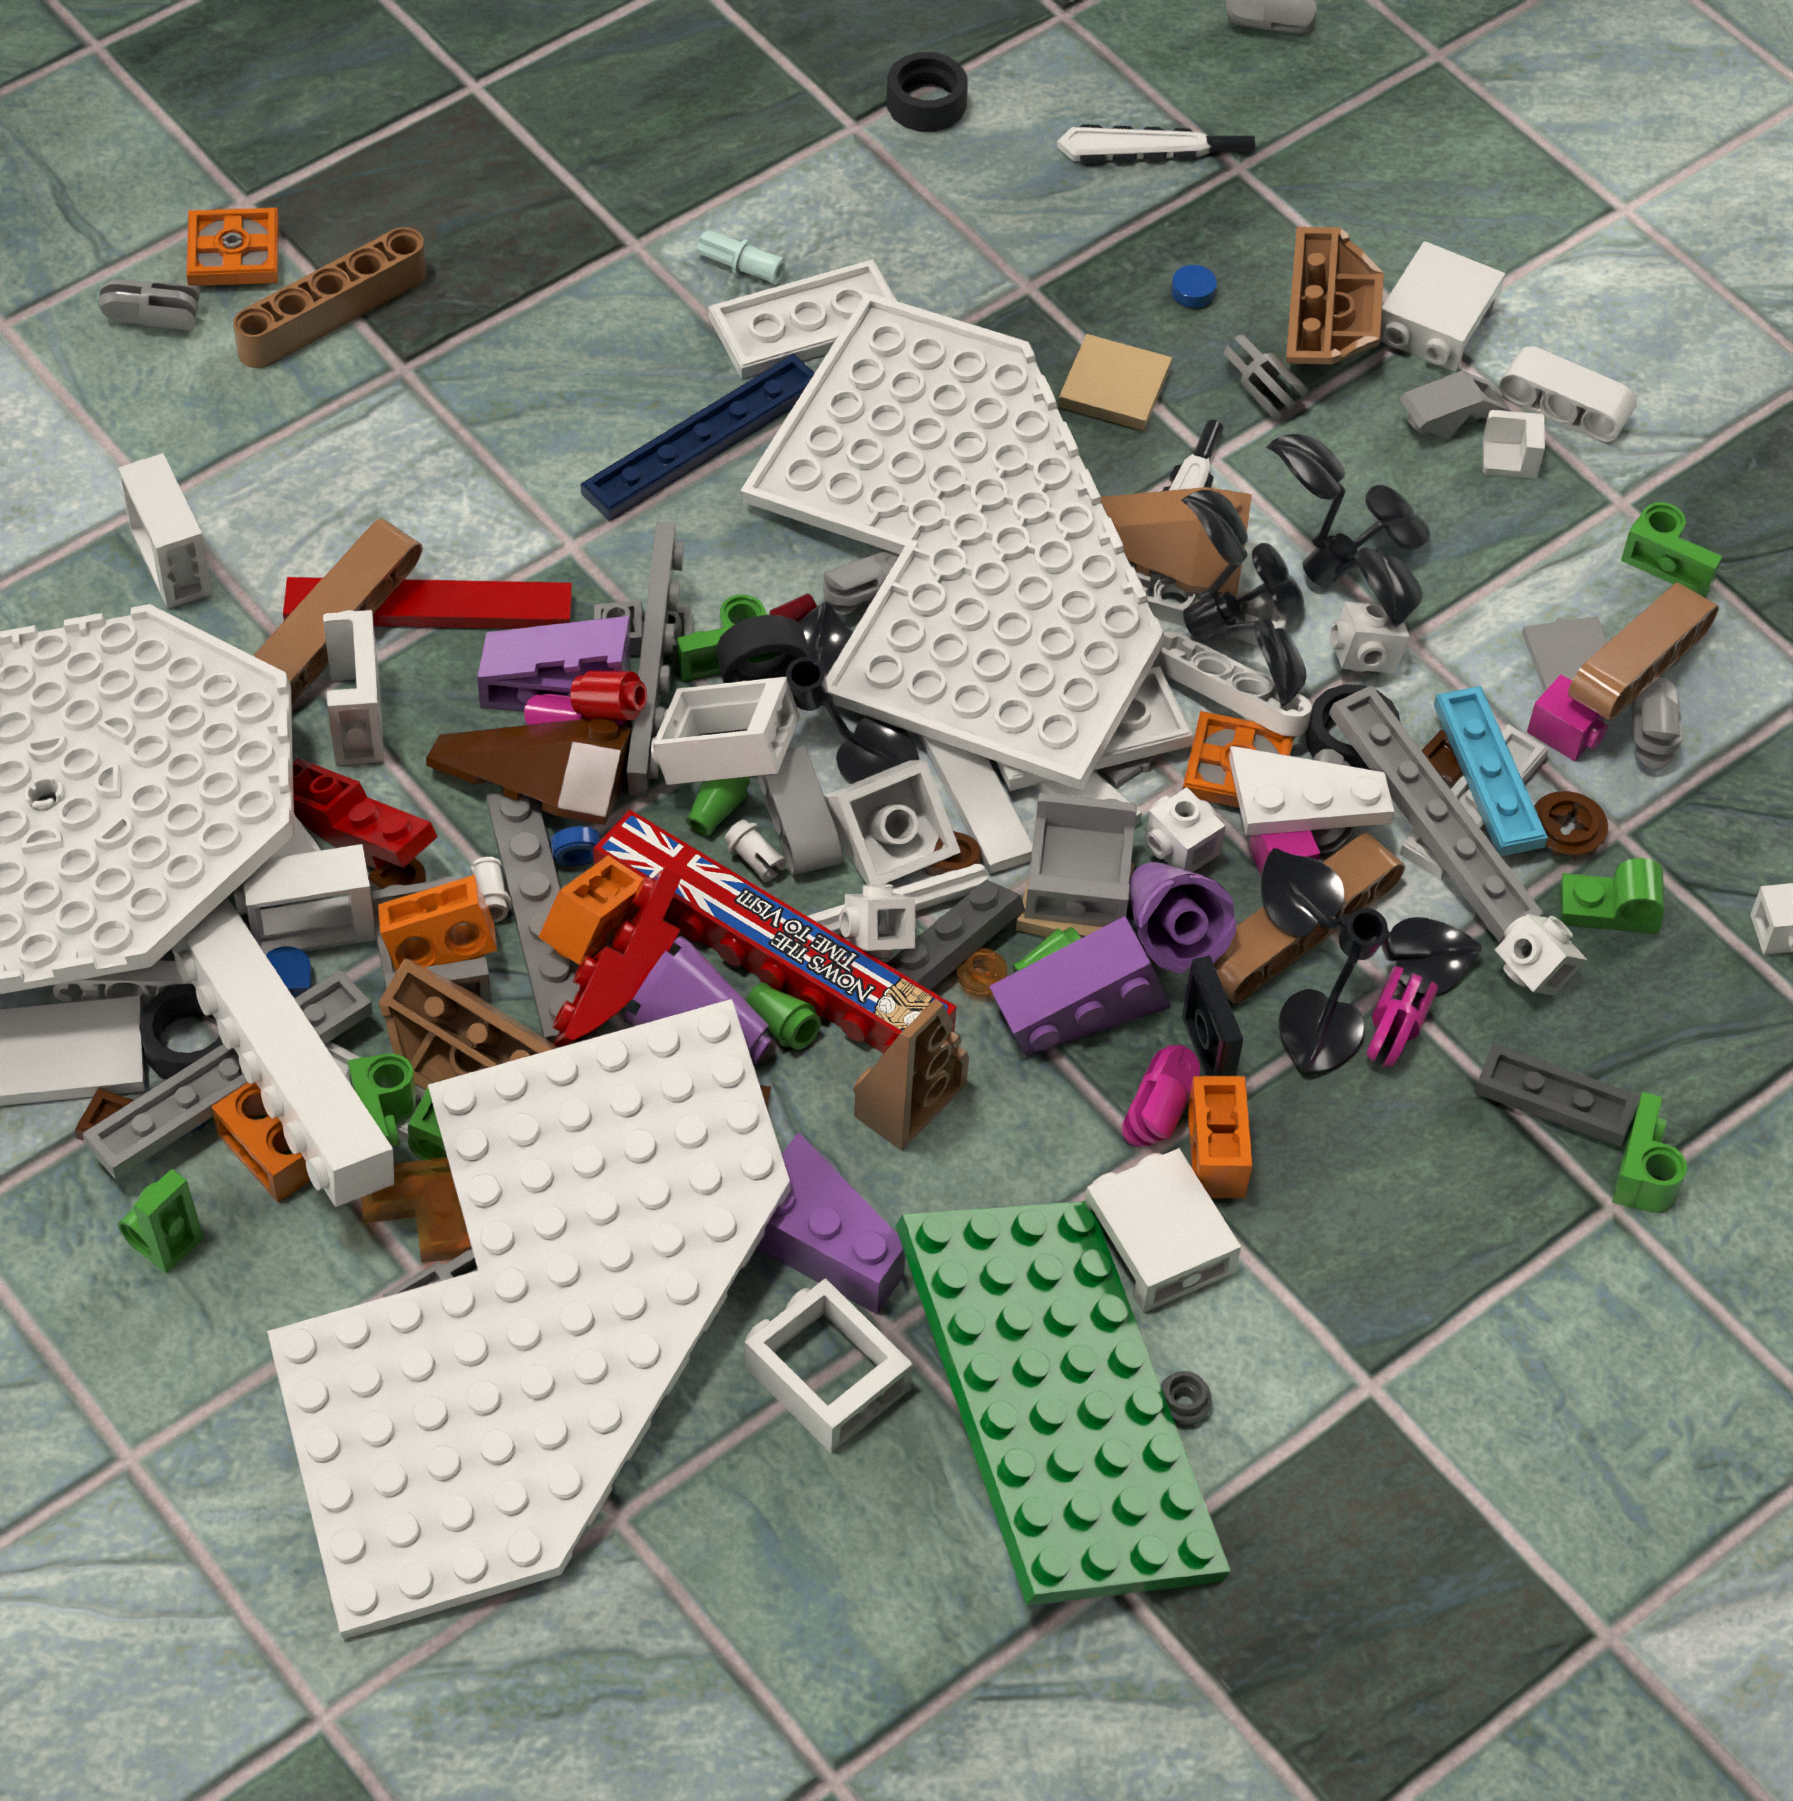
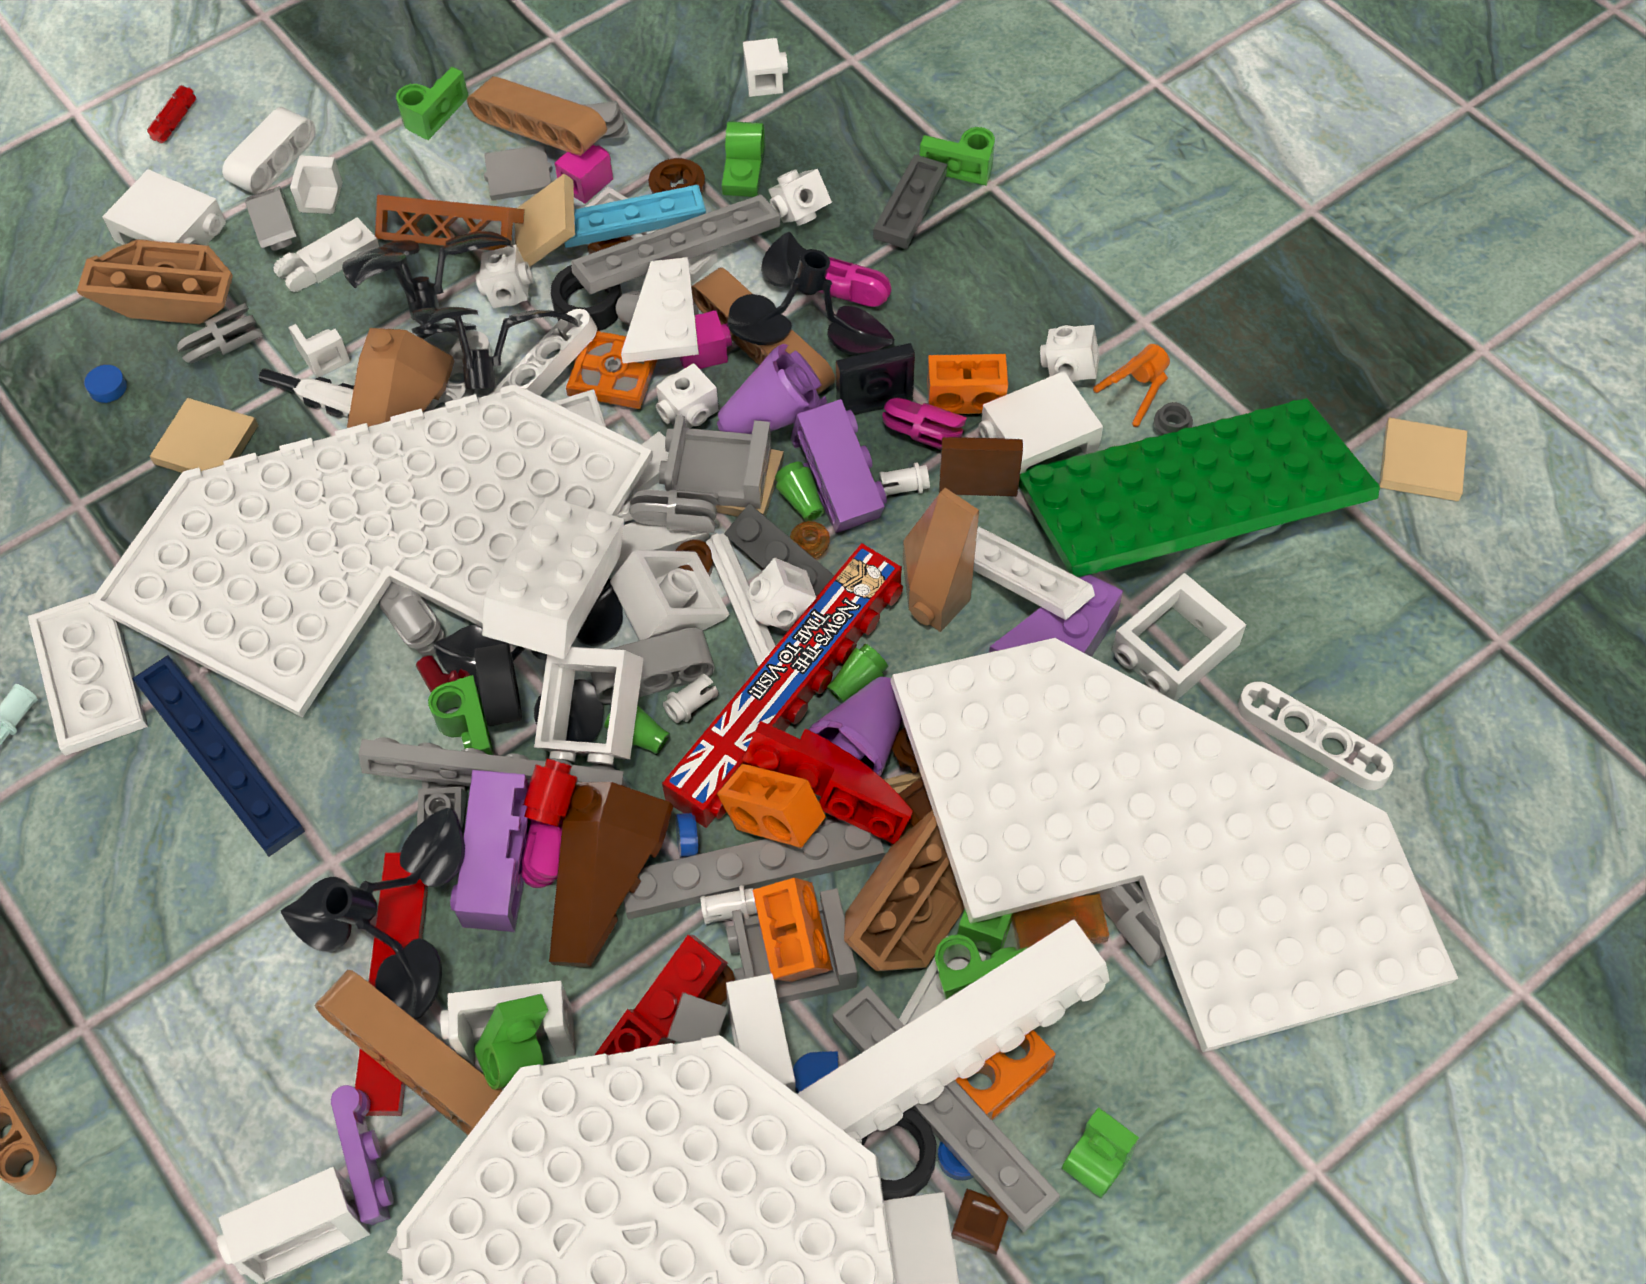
camera: 85 degrees left, 5 degrees up
(235, 579) = (360, 1154): none -> medium lavender plate
(318, 673) = (511, 1039): none -> bright green plate
(336, 831) = (696, 1019): none -> light grey tile
(480, 537) = (331, 905): none -> black plant
(693, 1521) = (1317, 730): none -> white beam
(870, 669) = (553, 577): none -> white brick
(913, 1179) = (1030, 575): none -> white tile
(1007, 817) = (675, 509): none -> light grey arm
(1076, 1085) = (905, 480): none -> white pin
(1077, 1135) = (981, 466): none -> reddish brown tile
(1133, 1719) = (1423, 459): none -> tan tile
(1250, 470) = (322, 351): none -> white panel
(1276, 1368) = (1144, 367): none -> orange plant
(1280, 1266) = (1071, 351): none -> white brick
(1406, 469) = (324, 255): none -> white hinge
(1464, 673) = (547, 220): none -> tan tile
(1474, 575) = (437, 208): none -> dark orange fence
(1624, 297) = (171, 114): none -> red axle

